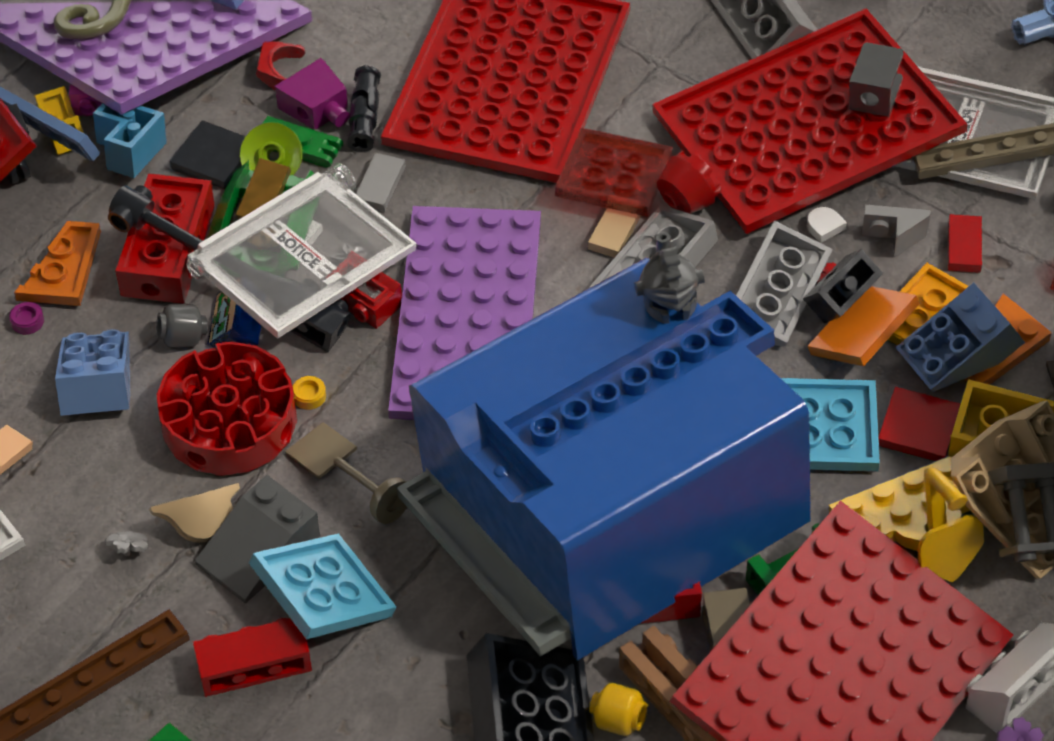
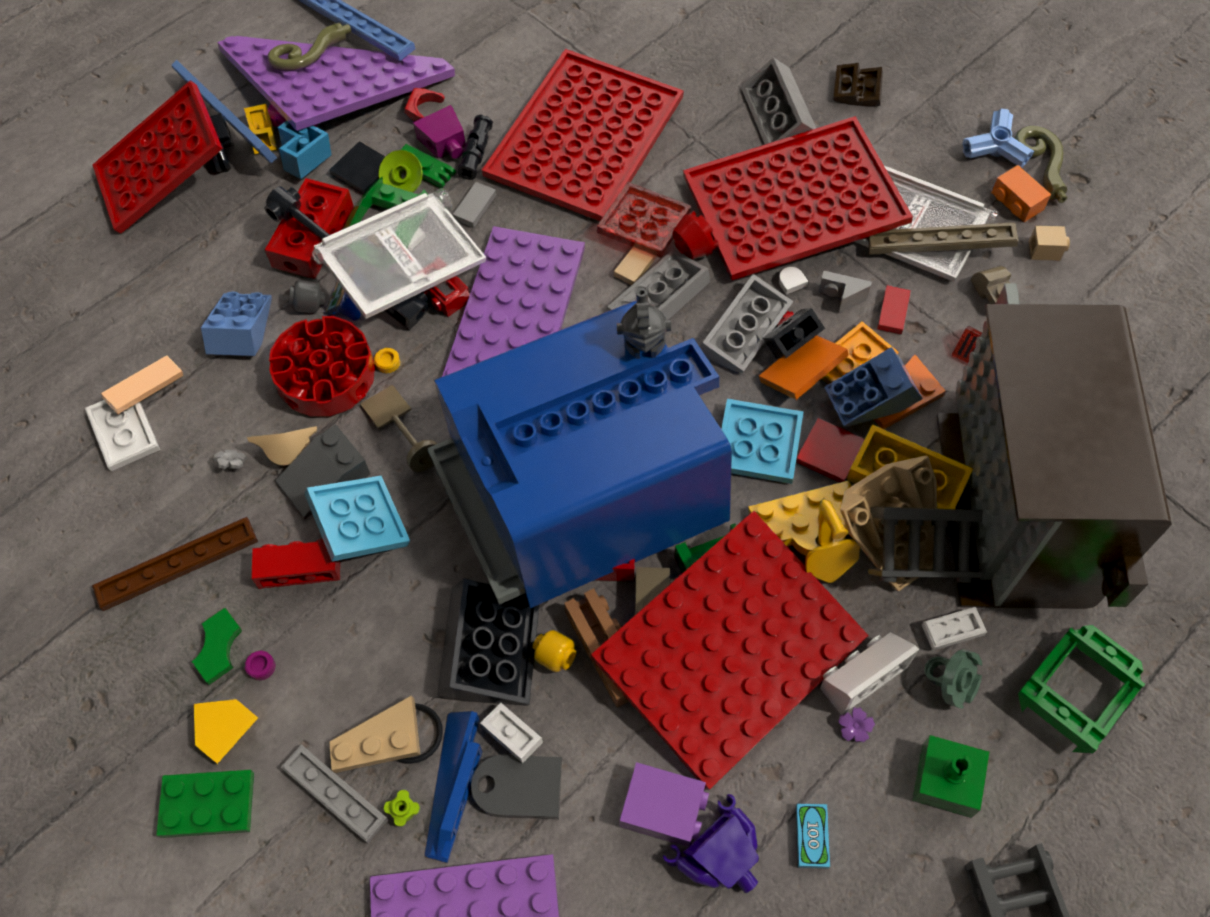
camera: 10 degrees right, 10 degrees up
(26, 318) = (202, 275): magenta tile -> none
(65, 268) = (237, 241): orange wing -> none
(266, 184) = (388, 196): pearl gold tile -> none
(875, 79) = (850, 173): dark grey piece -> none

